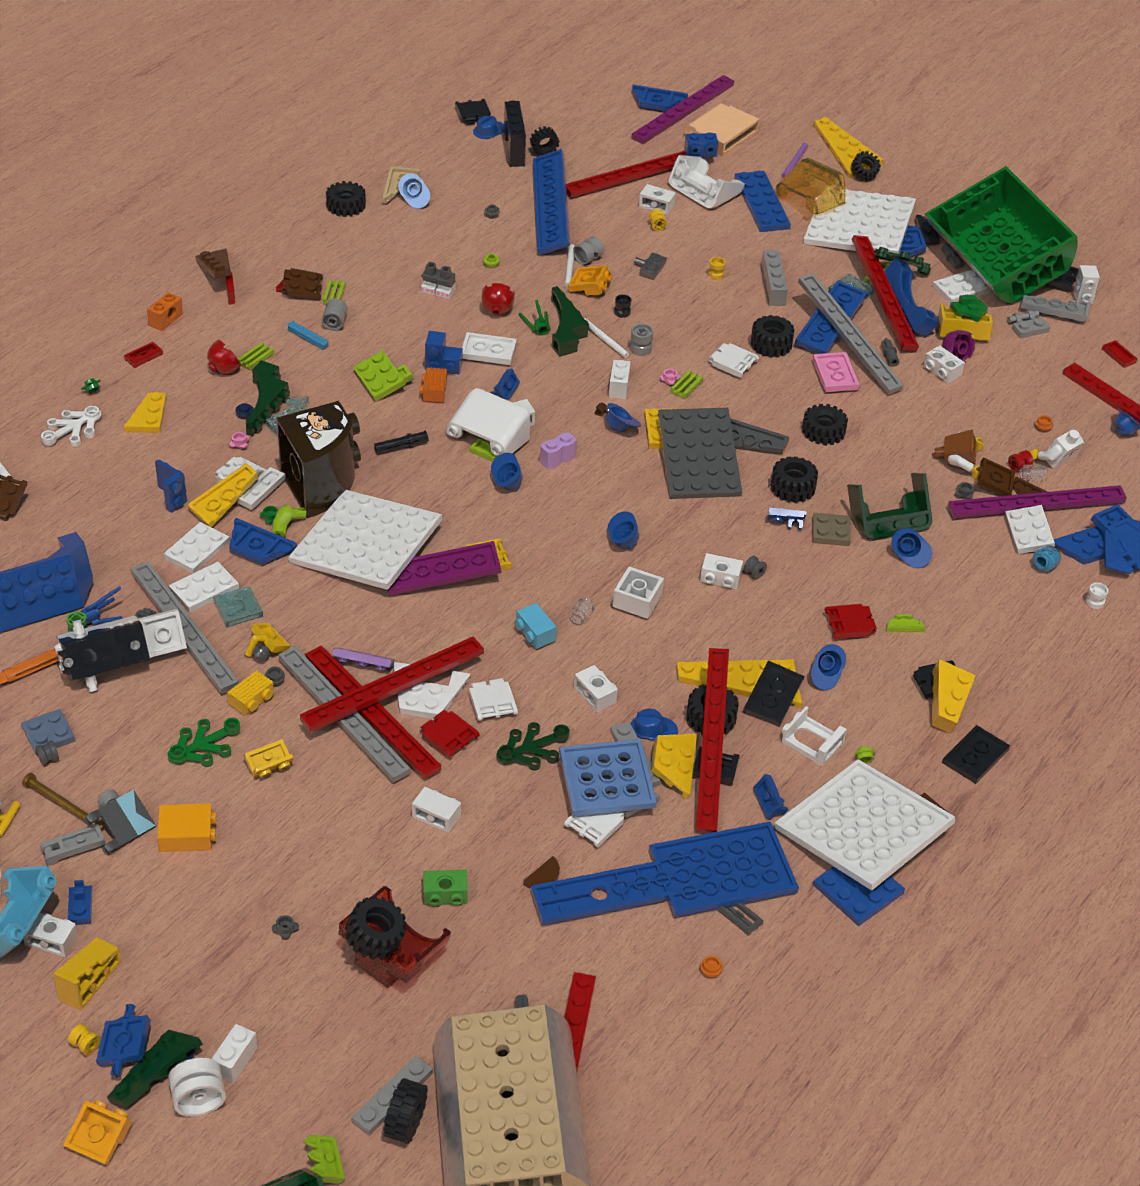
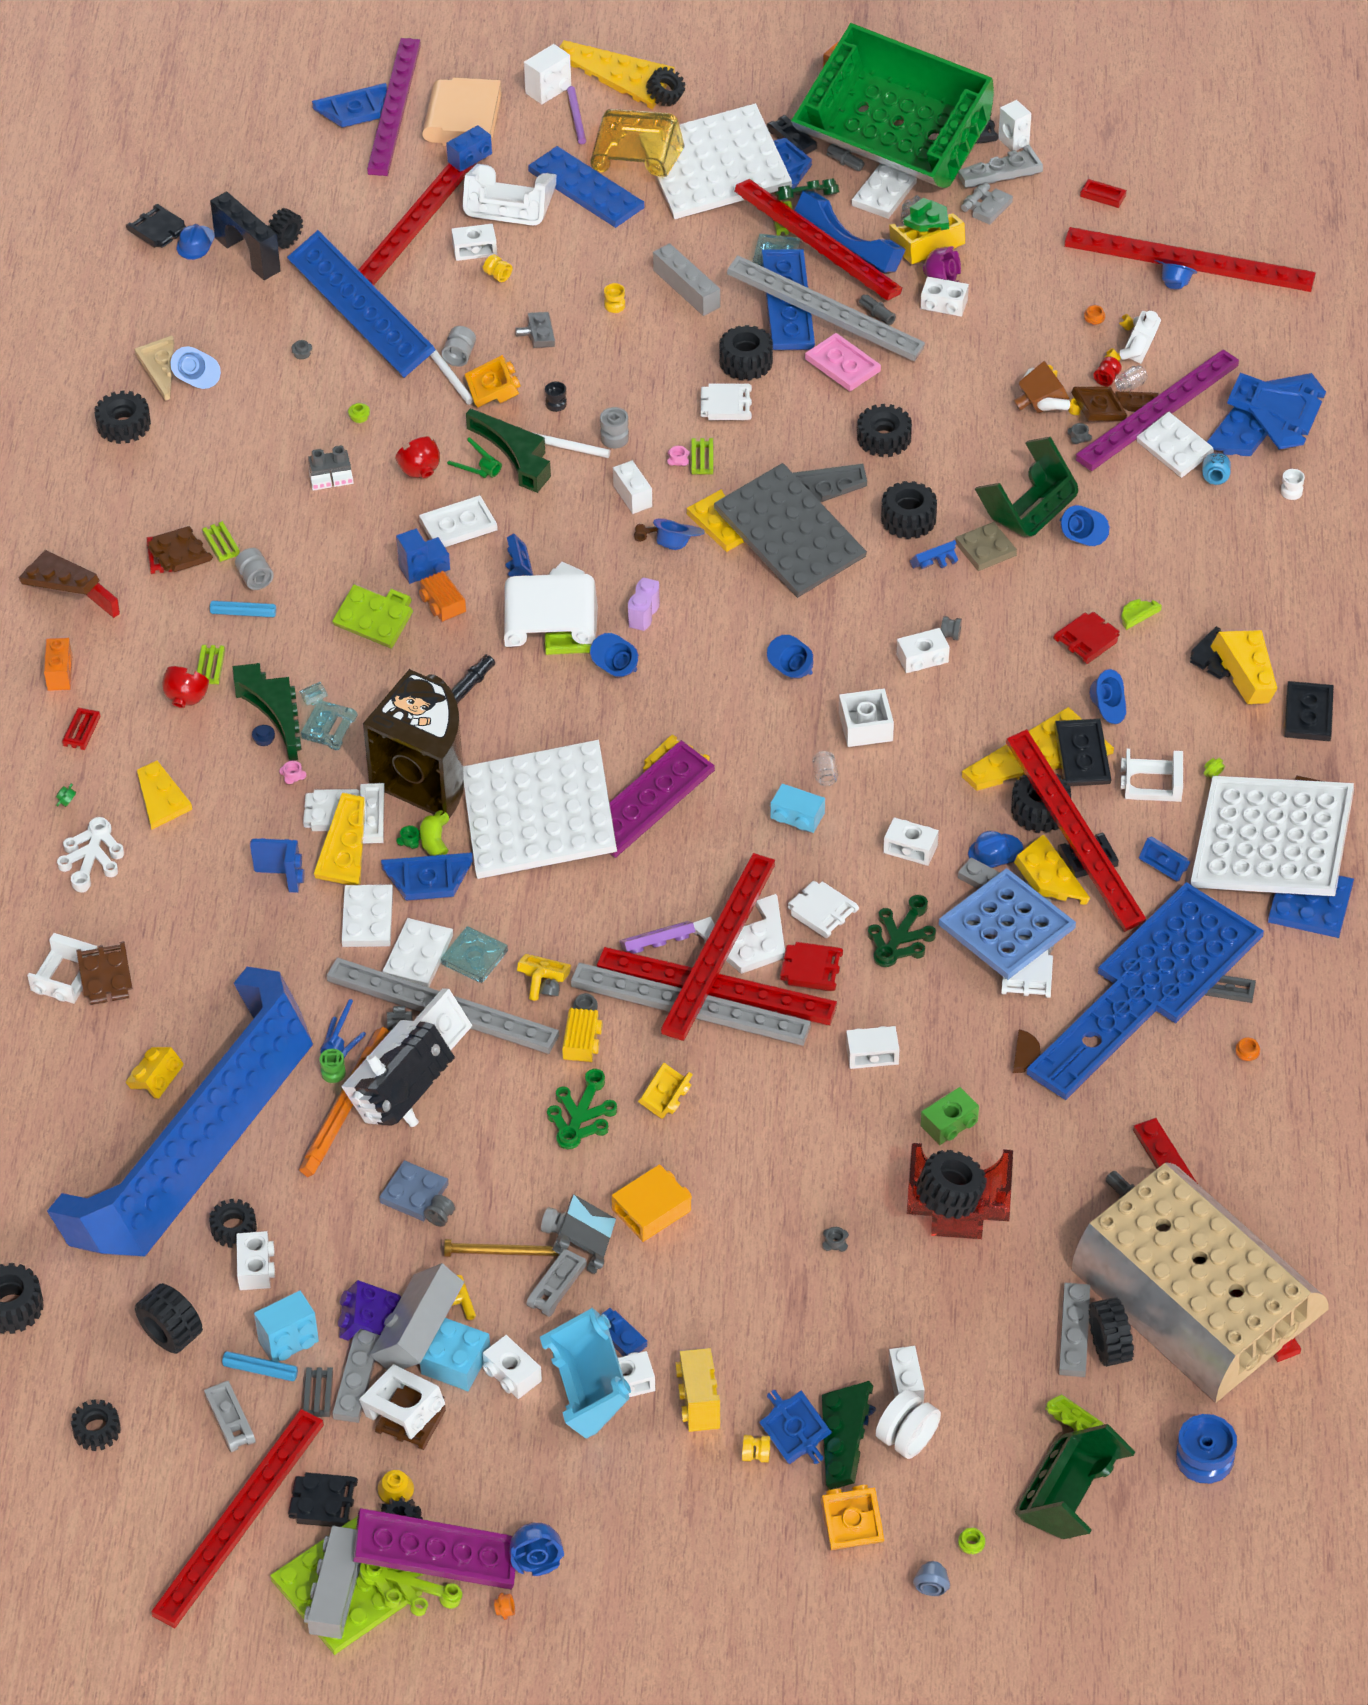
camera: 30 degrees left, 5 degrees up
(793, 127) = (547, 74): none -> white brick

